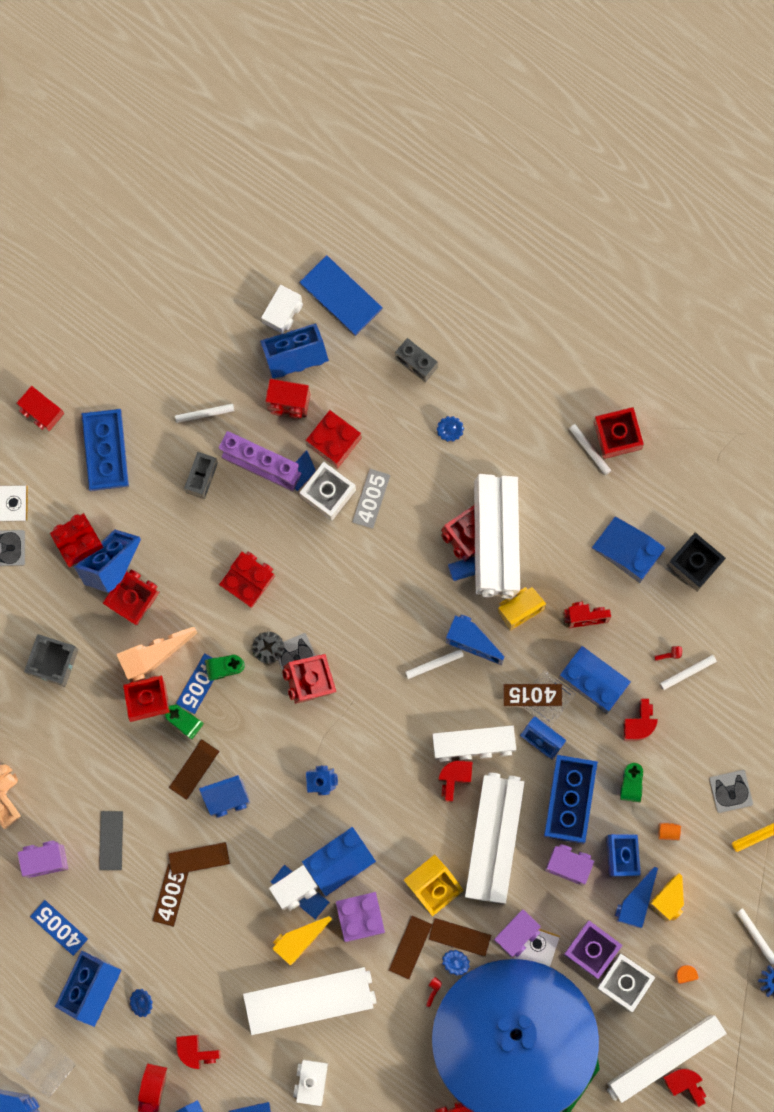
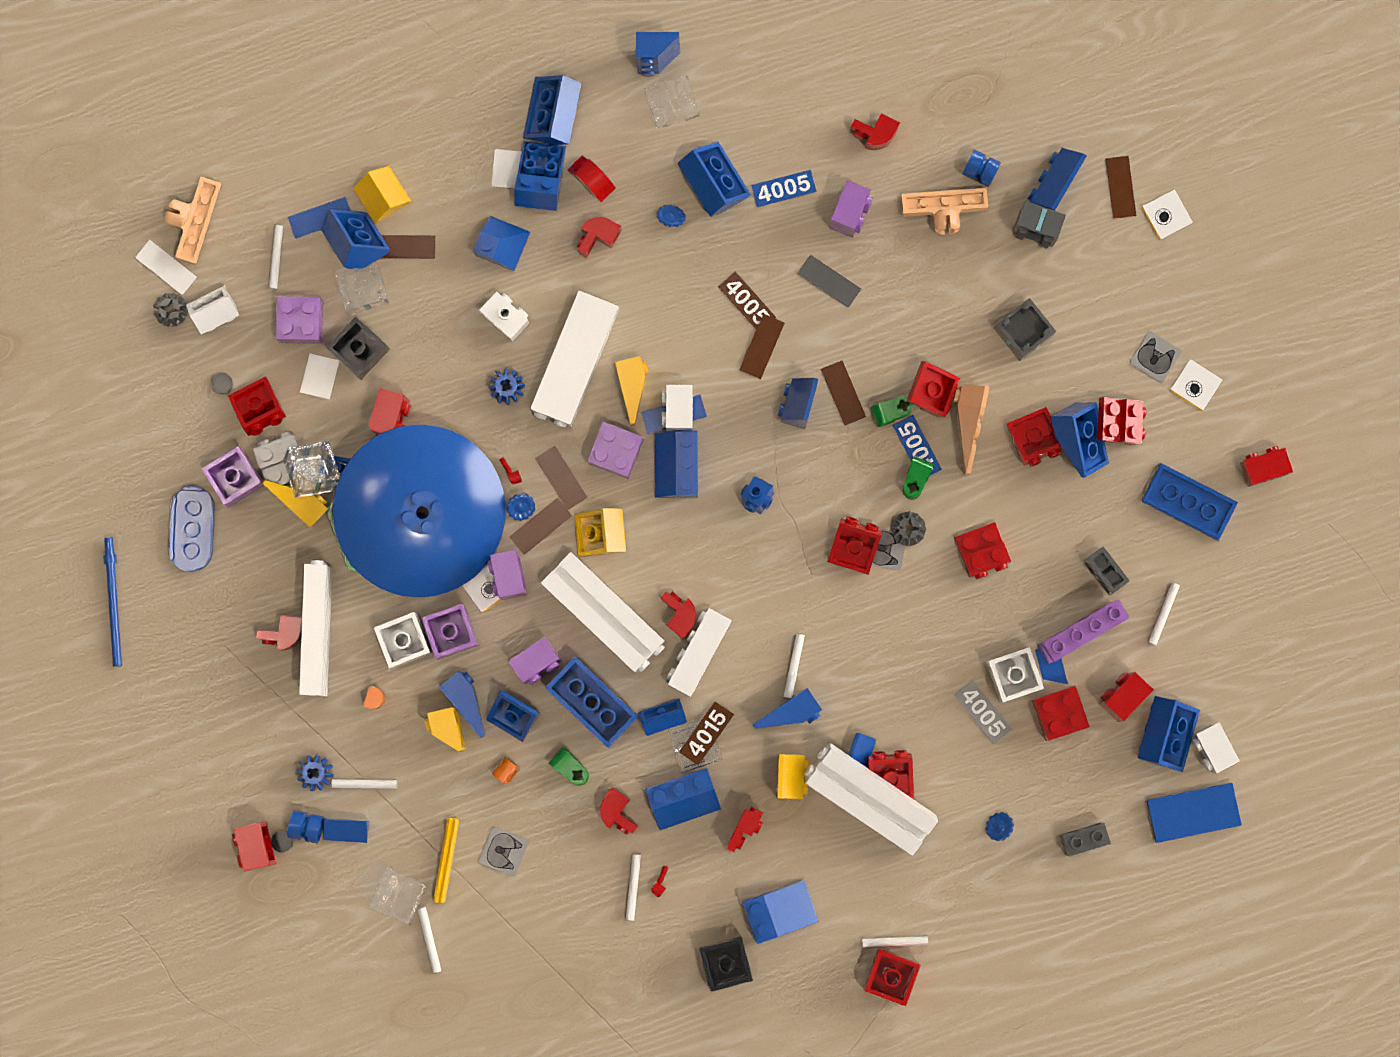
camera: 125 degrees right, 5 degrees up
(373, 1045) = (514, 383): none -> blue gear

